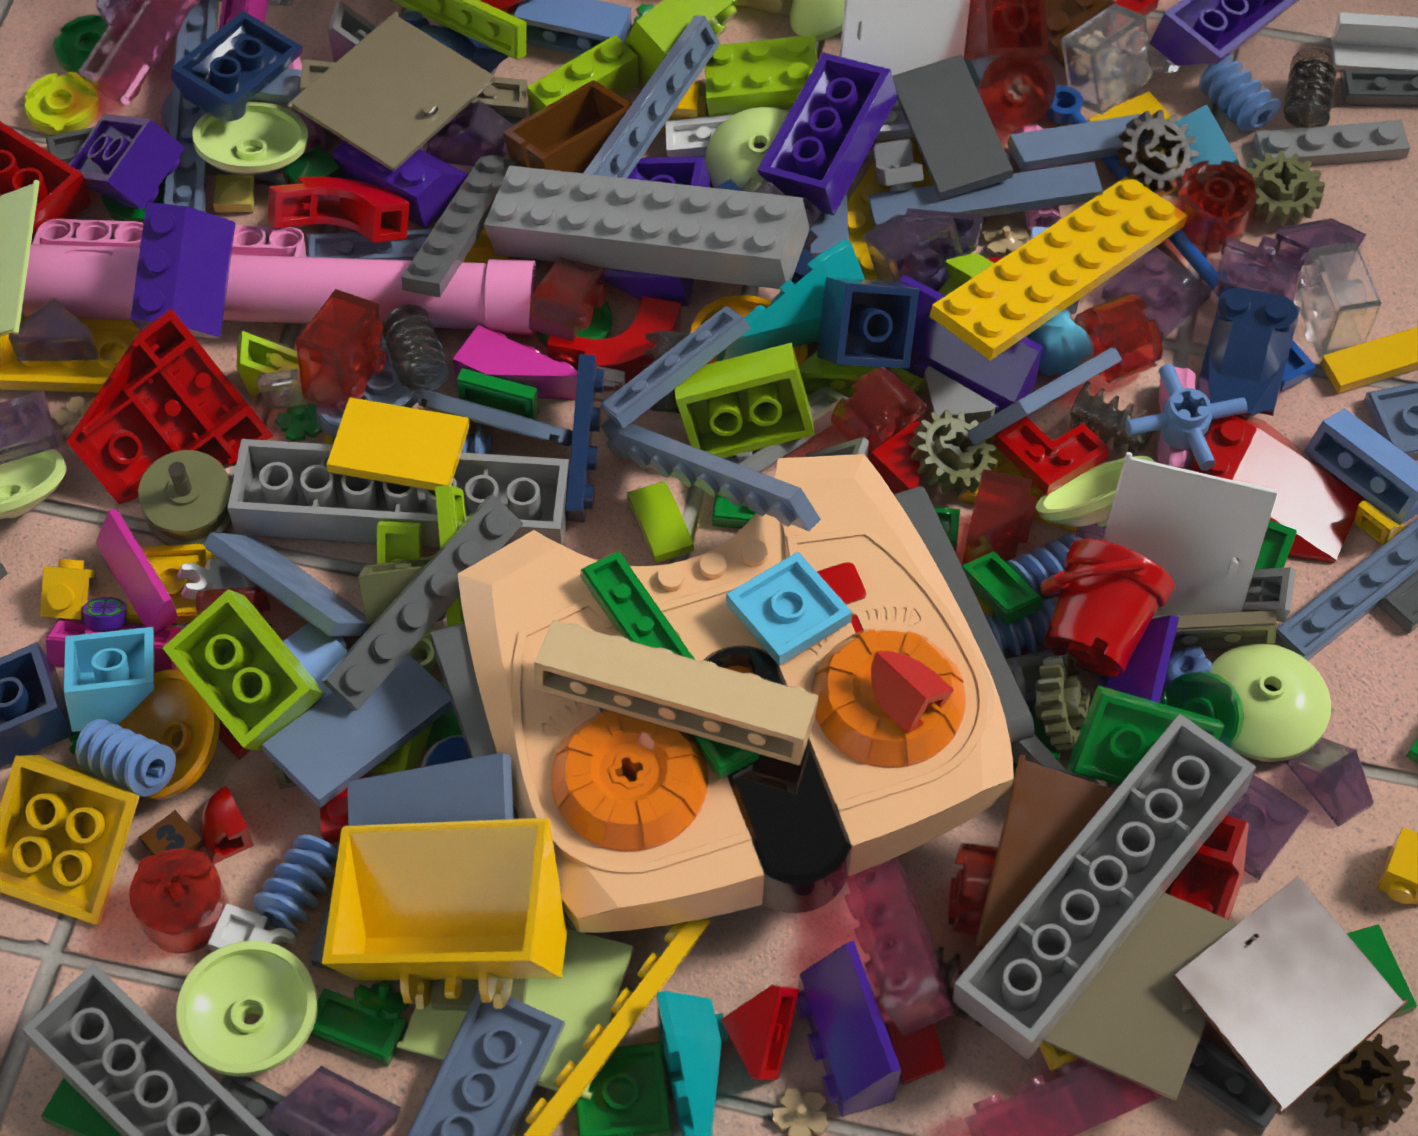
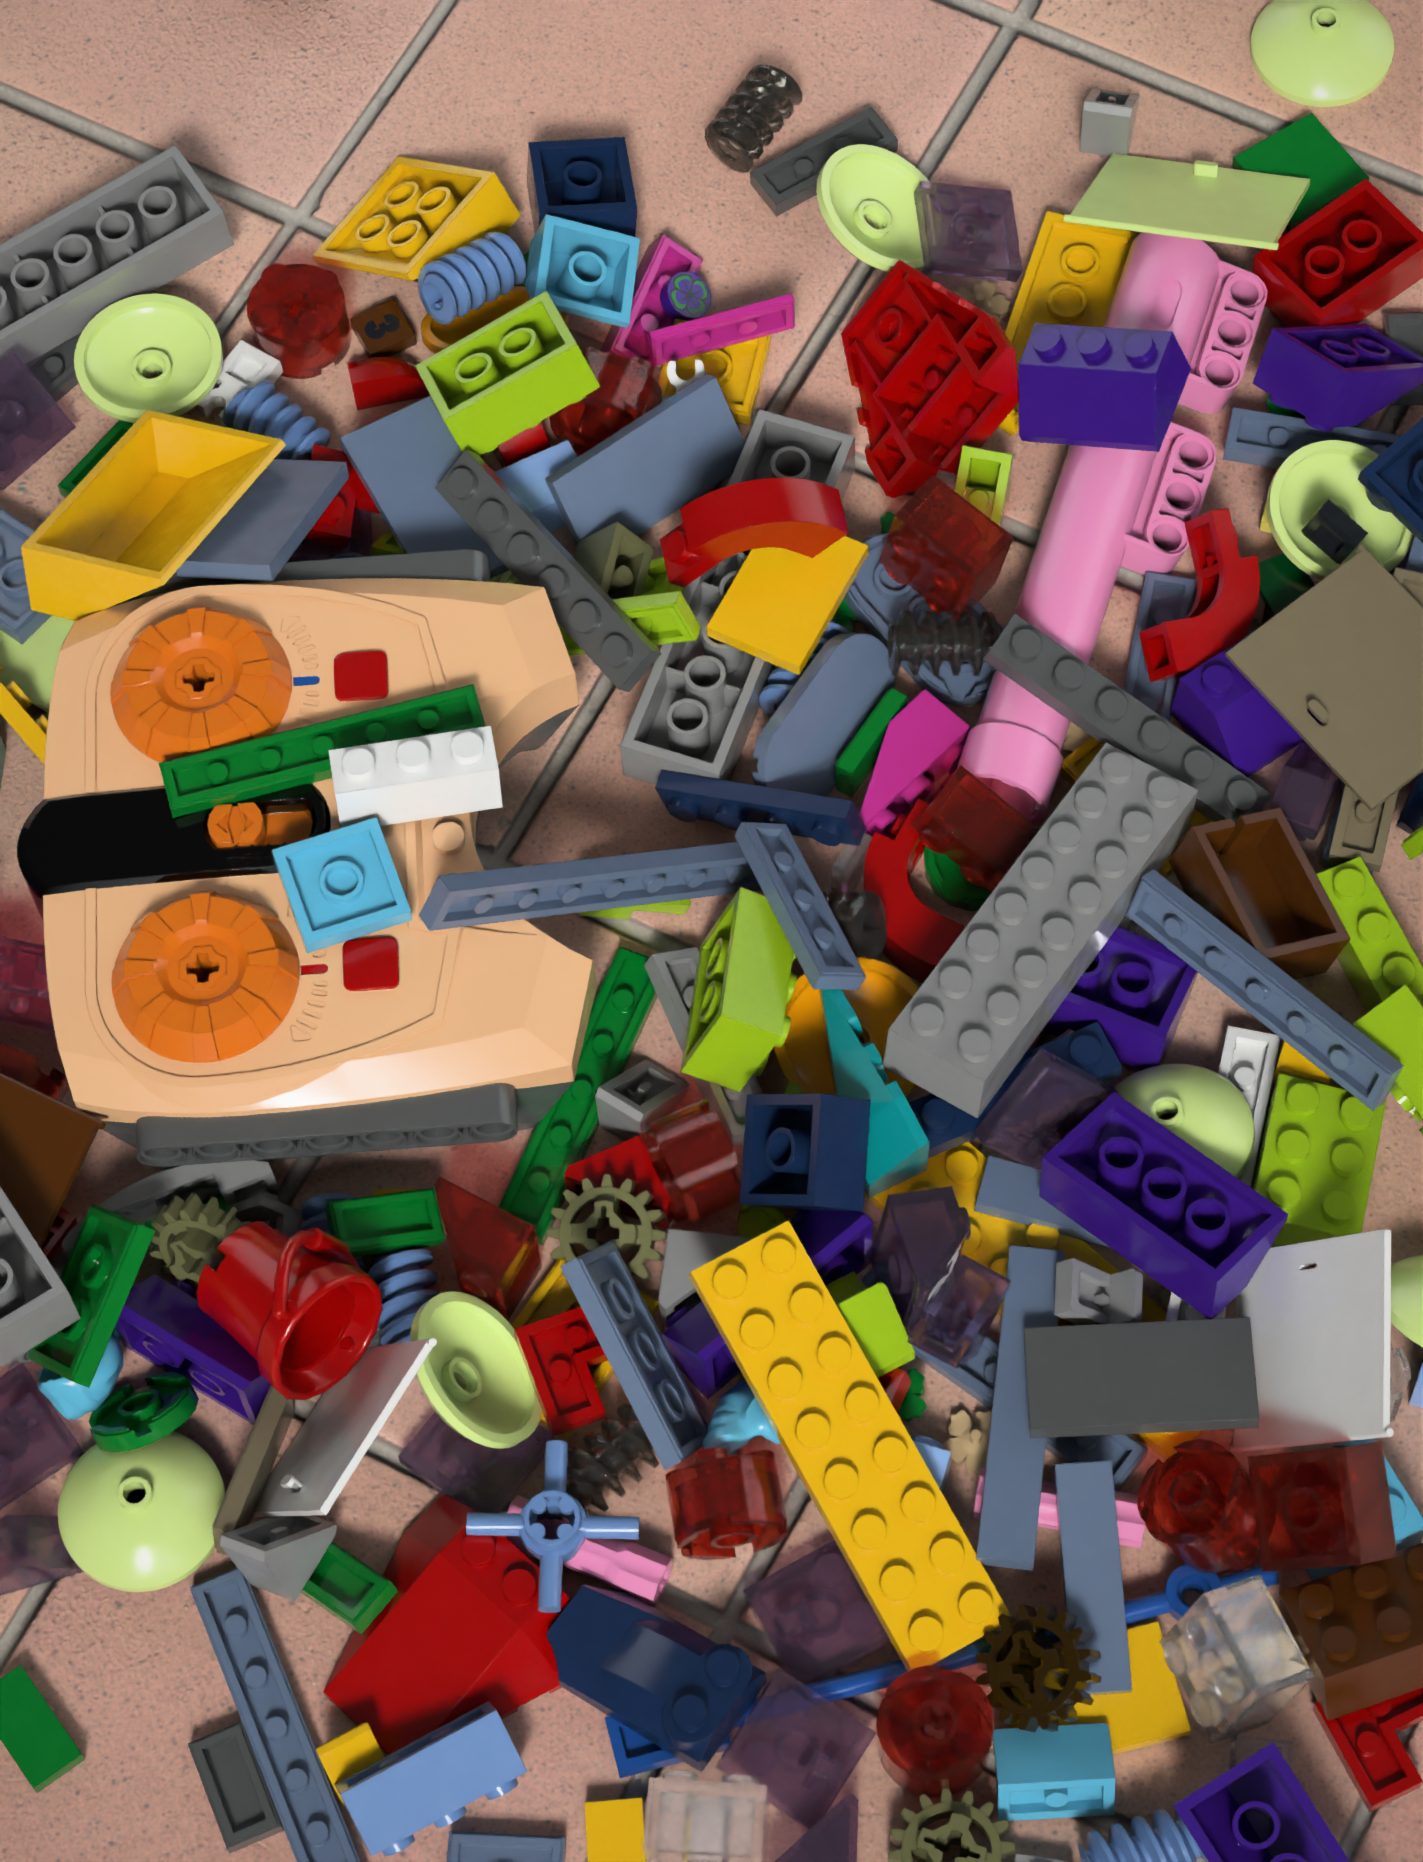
camera: 110 degrees right, 5 degrees up
(53, 336) = (1080, 275): slope -> none
(65, 589) = (734, 262): yellow bracket -> none
(185, 497) = (809, 379): olive wheel -> none
(278, 122) = (1334, 532): none -> black tile
(368, 460) = (750, 516): none -> red arch
(675, 691) = (255, 726): tan brick -> none
(683, 578) = (417, 777): none -> white brick
(906, 688) = (176, 968): red brick -> none
(1185, 662) = (221, 1433): medium blue plant -> none

